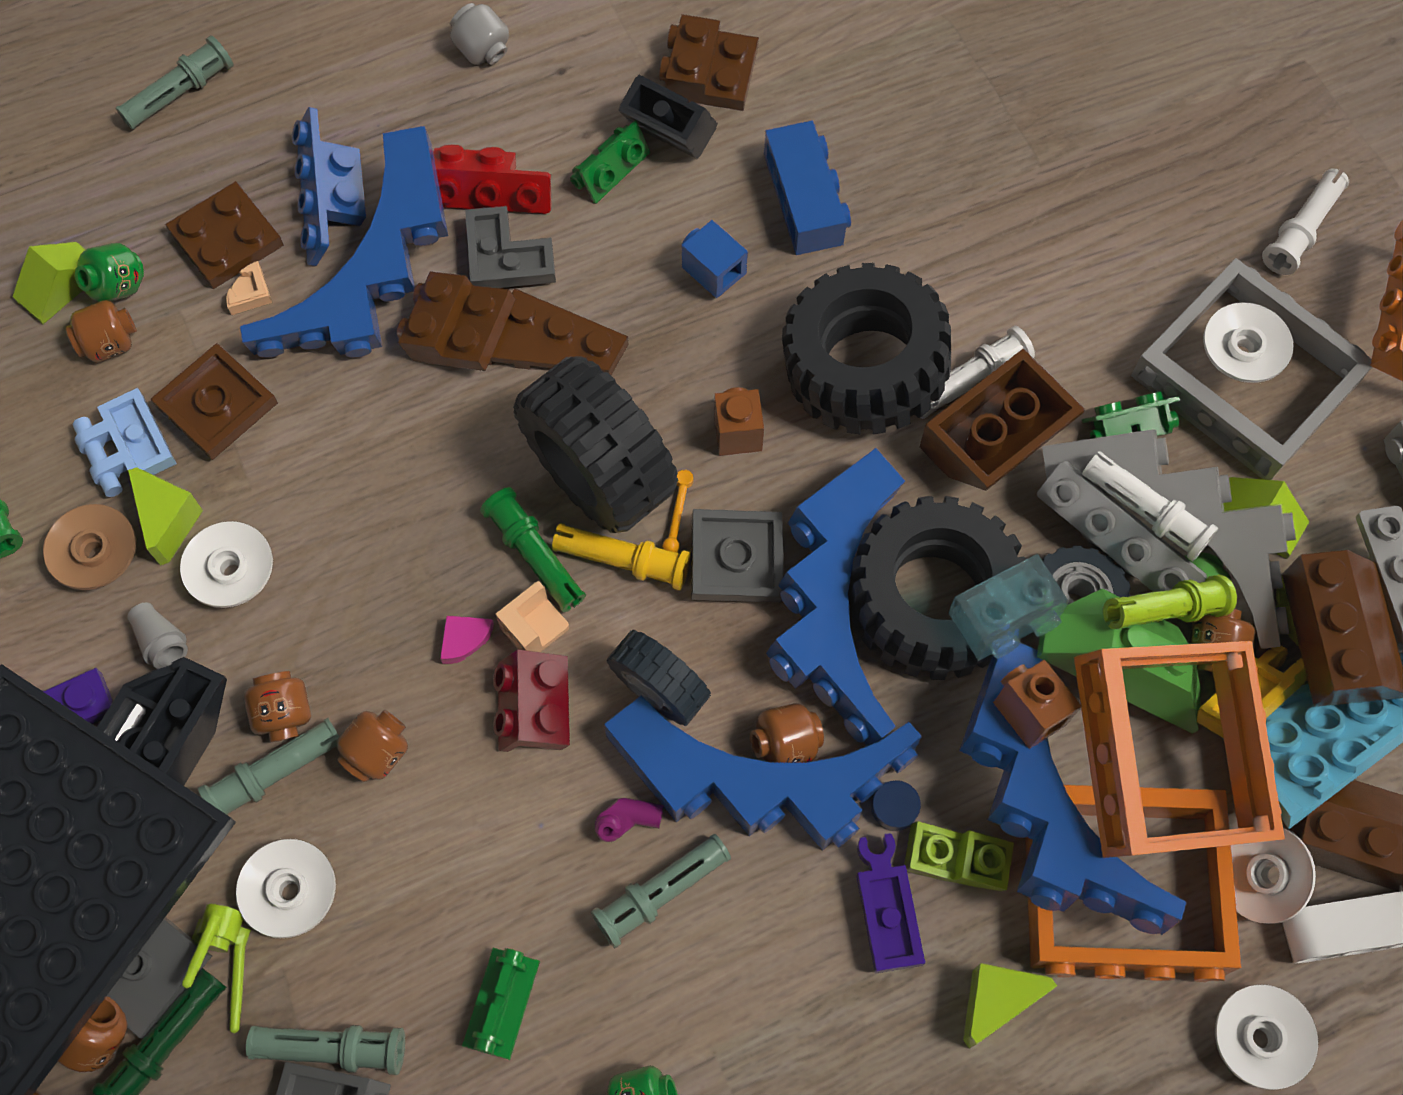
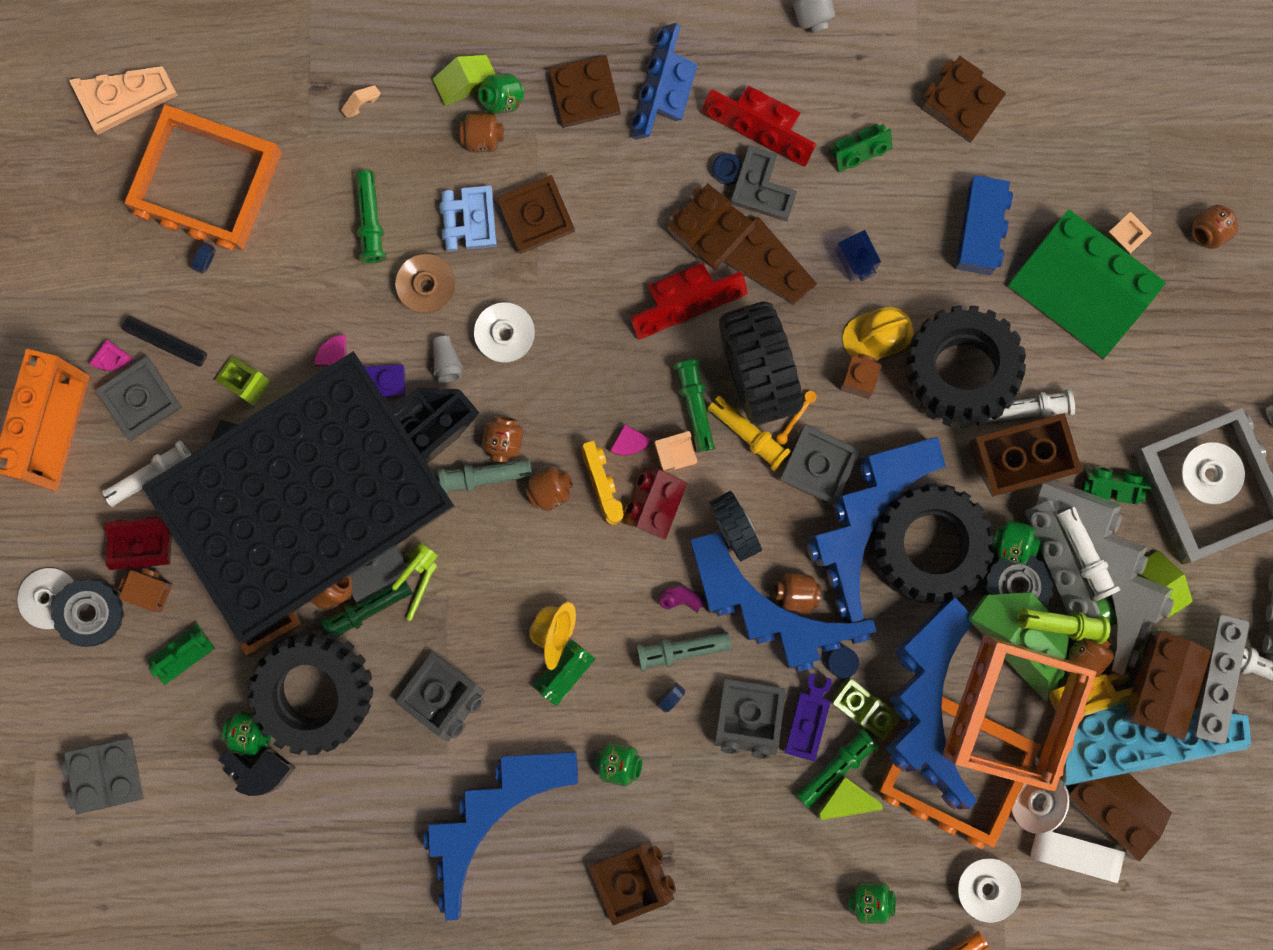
camera: 25 degrees right, 15 degrees up
(164, 513) = (478, 280): lime slope -> none
(248, 290) = (585, 140): light nougat tile -> none
(267, 875) = (451, 550): white dish -> none
(349, 1048) = (470, 660): sand green pin -> none
(380, 267) = (643, 187): blue arch -> none
(447, 708) = (602, 484): none -> yellow hinge
(450, 253) = (726, 168): none -> dark blue tile
(459, 944) = (553, 630): none -> yellow piece
(460, 424) = (685, 297): none -> red bracket
(665, 282) = (858, 256): none -> clear blue brick
(668, 116) = (913, 134): black brick -> none
(675, 966) = (671, 697): none -> dark blue tile
(714, 258) = (896, 253): blue brick -> none
(740, 358) = (878, 333): none -> yellow piece
(803, 944) = (750, 718): none -> dark grey plate
(967, 201) = (1086, 284): none -> green slope
(969, 937) = (848, 758): none -> green pin
(984, 131) = (1128, 233): none -> light nougat panel
(1008, 608) = (963, 583): clear light blue brick -> none
(1036, 702) = (949, 648): dark orange brick -> none
(1048, 533) = (1016, 542): none -> green head
(1083, 81) = (1214, 227): none -> dark orange head

